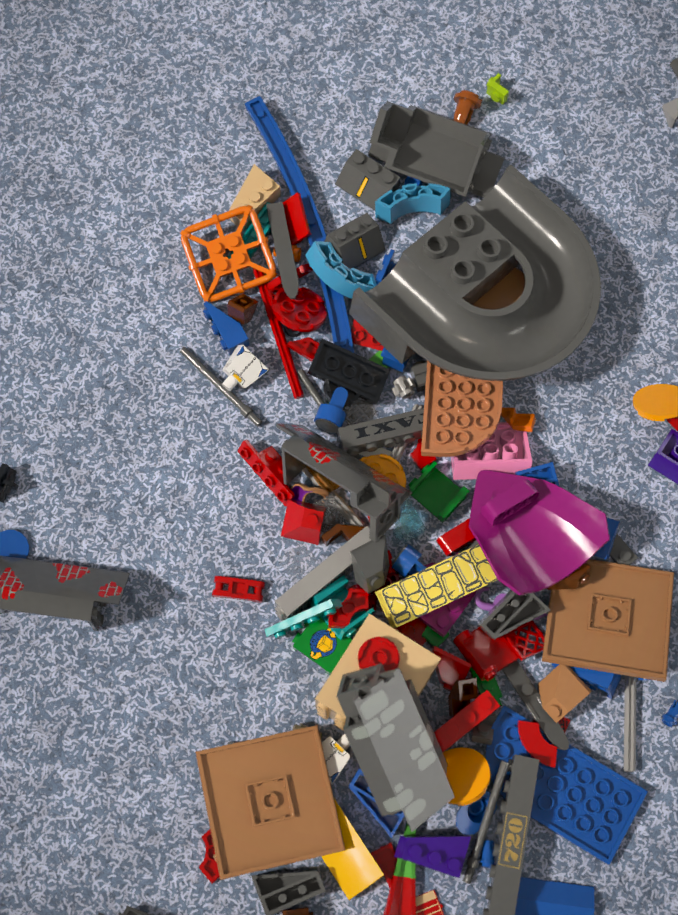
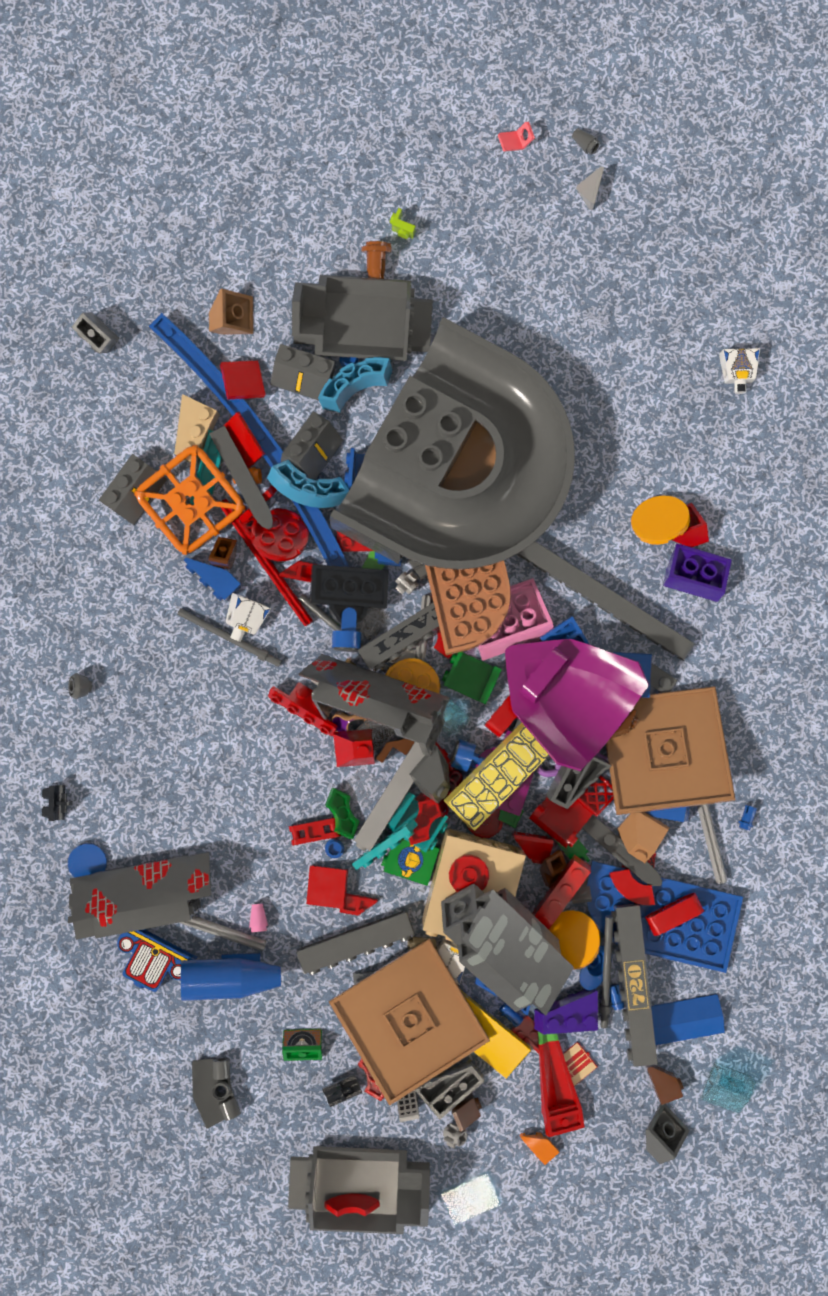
camera: 15 degrees left, 15 degrees up
(36, 660) = (151, 958): none -> brick
(38, 826) = (211, 1103): none -> dark grey panel
(65, 384) = (79, 686): none -> dark grey cone
(103, 698) = (227, 978): none -> blue piece
(107, 652) = (227, 933): none -> light grey axle
(152, 798) = (302, 1044): none -> panel
(153, 657) = (258, 918): none -> bright pink cone
(167, 230) = (120, 492): none -> dark grey slope
(176, 856) = (342, 1090): none -> black hips
(195, 94) = (95, 332): none -> dark grey brick
(232, 646) = (327, 886): none -> red tile
(239, 889) = (408, 1107): none -> light grey slope
(241, 709) = (355, 942): none -> dark grey brick
(251, 612) = (334, 848): none -> blue plate
(254, 673) = (357, 904): none -> red tile
(271, 585) = (345, 821): none -> green tile
(312, 170) = (242, 379): none -> red tile
(321, 115) = (231, 313): none -> medium nougat slope
(374, 836) = (511, 1015): none -> blue pin
(518, 421) = (527, 580): orange slope -> none
(572, 783) = (674, 914): none -> red beam
(588, 458) = (607, 600): none -> dark grey beam
(619, 53) = (514, 140): none -> coral bracket

